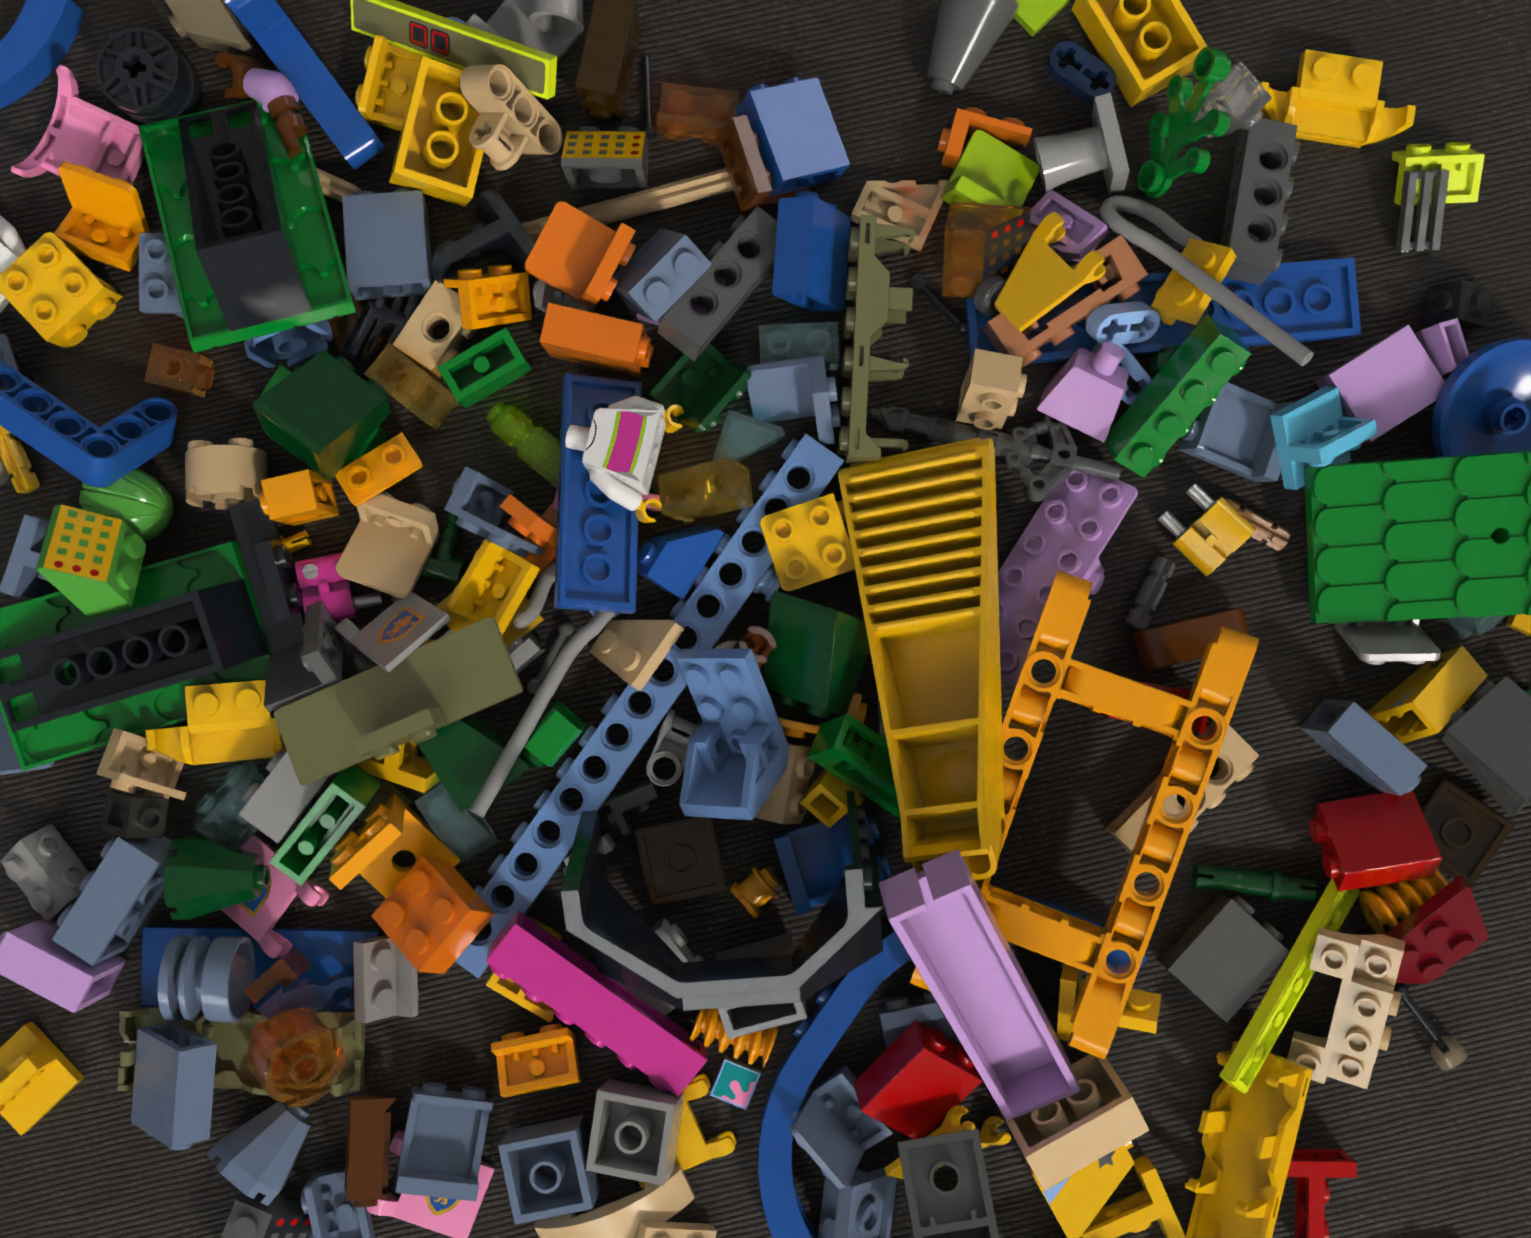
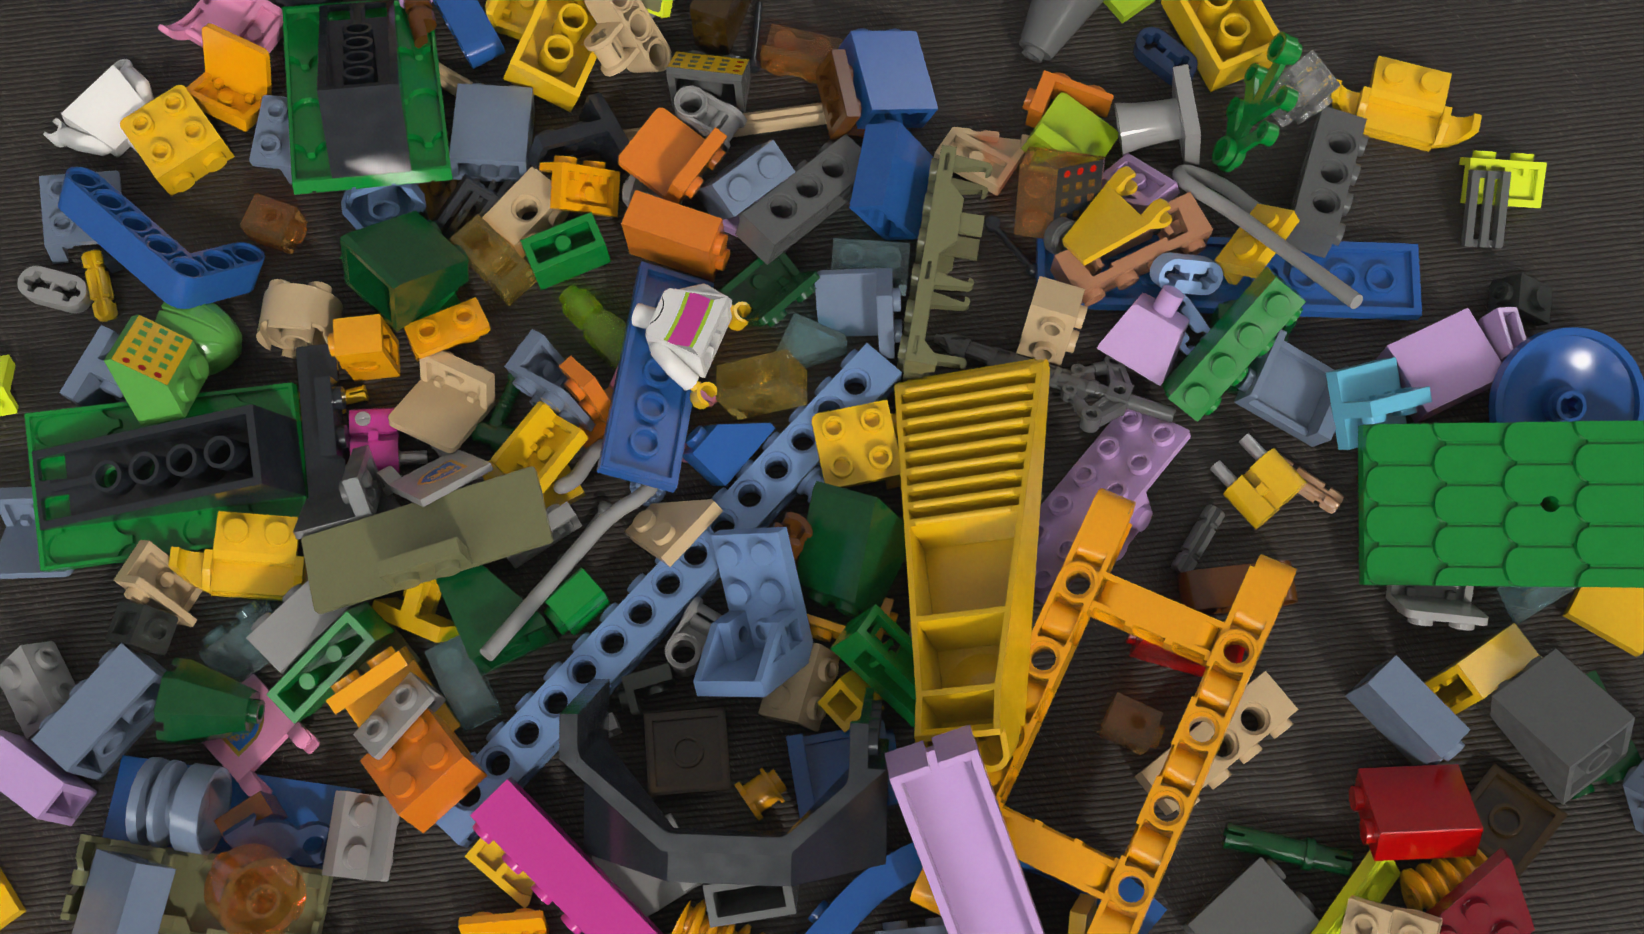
camera: 10 degrees right, 15 degrees down
(400, 870) = (397, 714): none -> light grey bracket
(614, 204) = (711, 113): none -> light grey piece
(1100, 784) = (1131, 724): none -> clear orange brick

